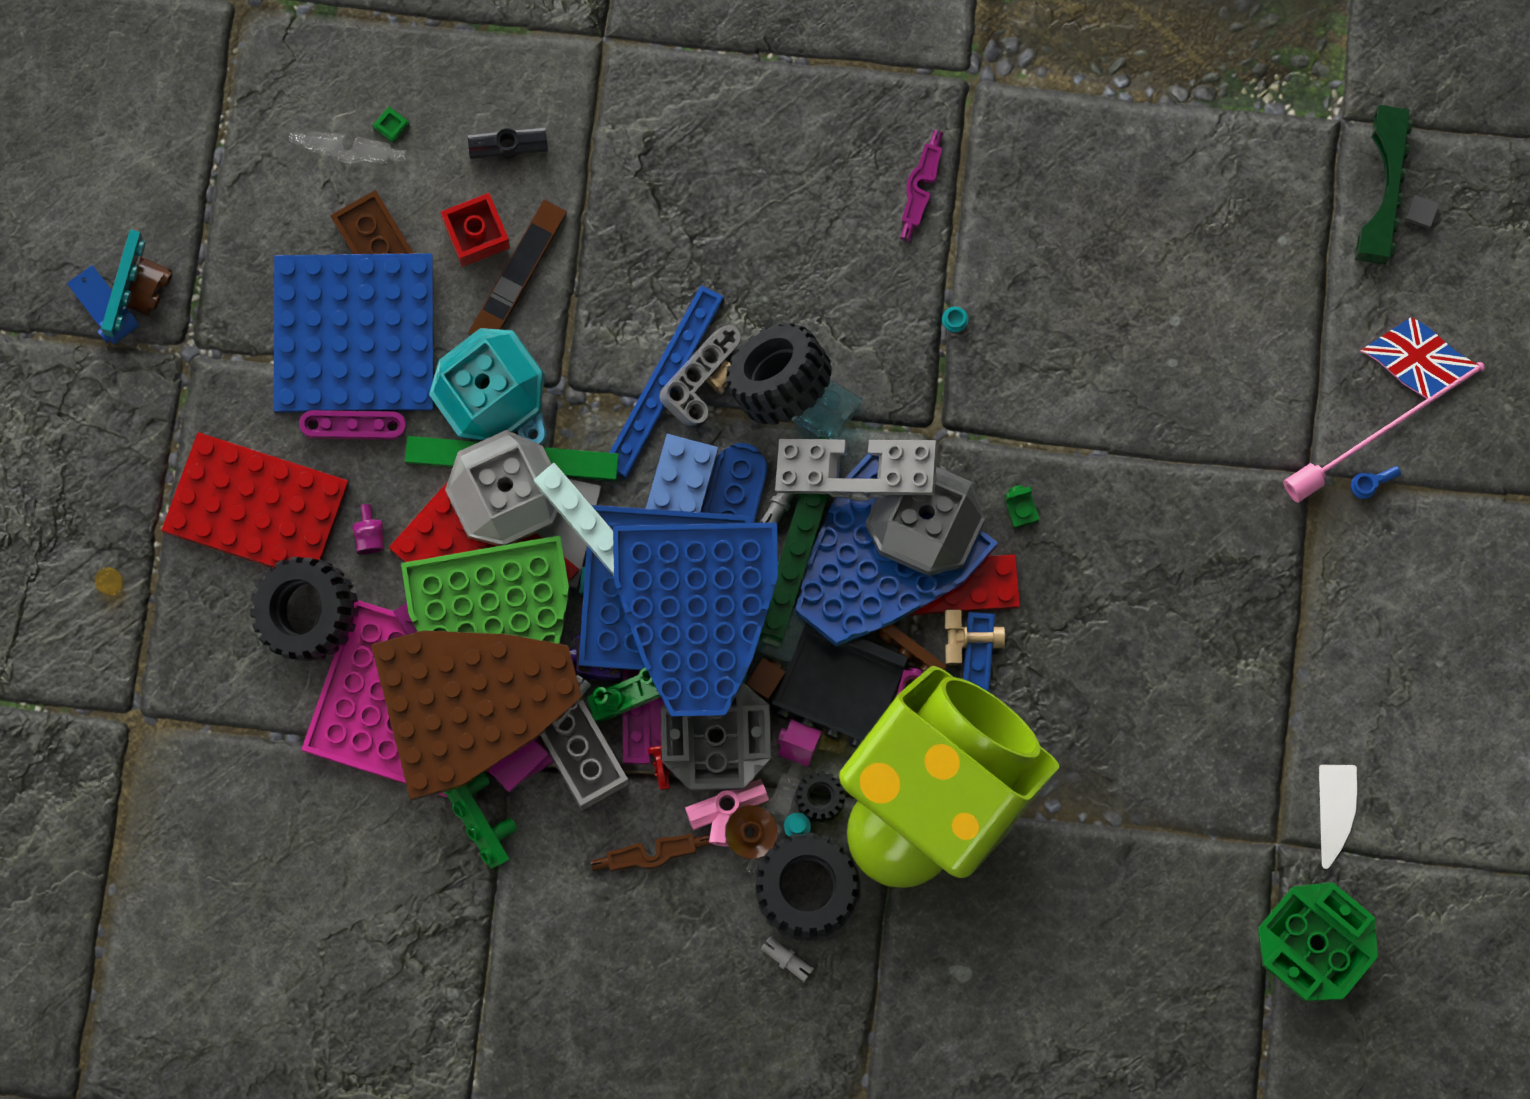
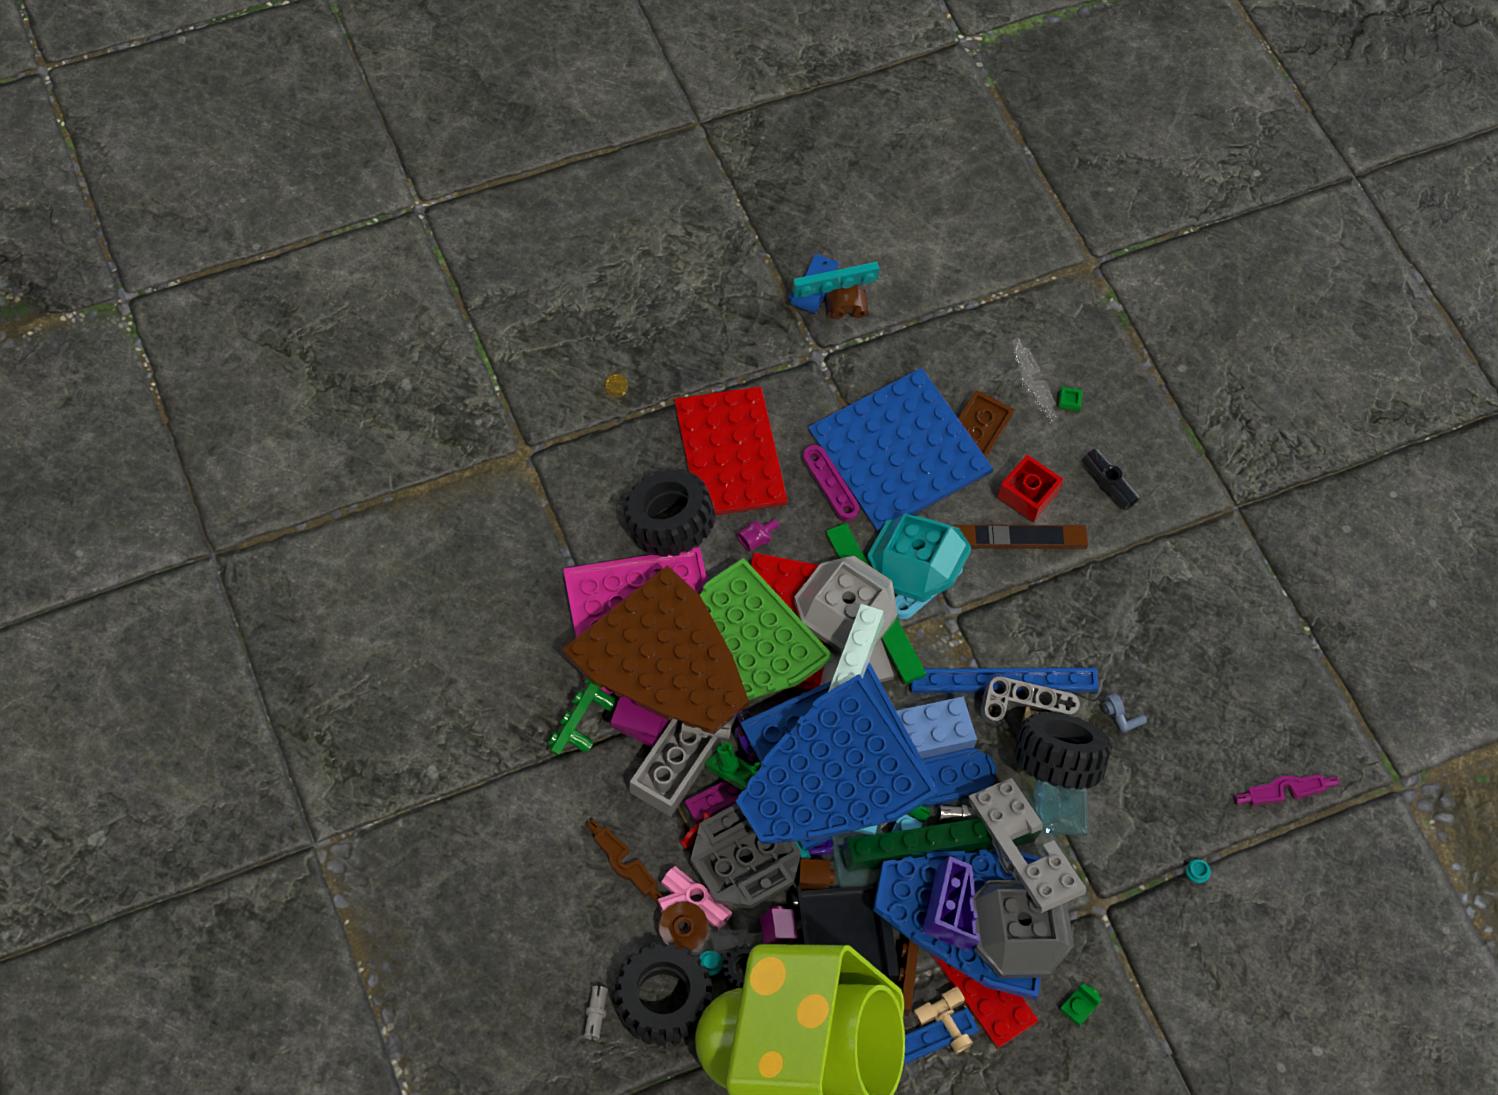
camera: 60 degrees right, 15 degrees down
(752, 294) = (1114, 706): none -> sand blue plate
(875, 571) = (951, 905): none -> dark purple wedge

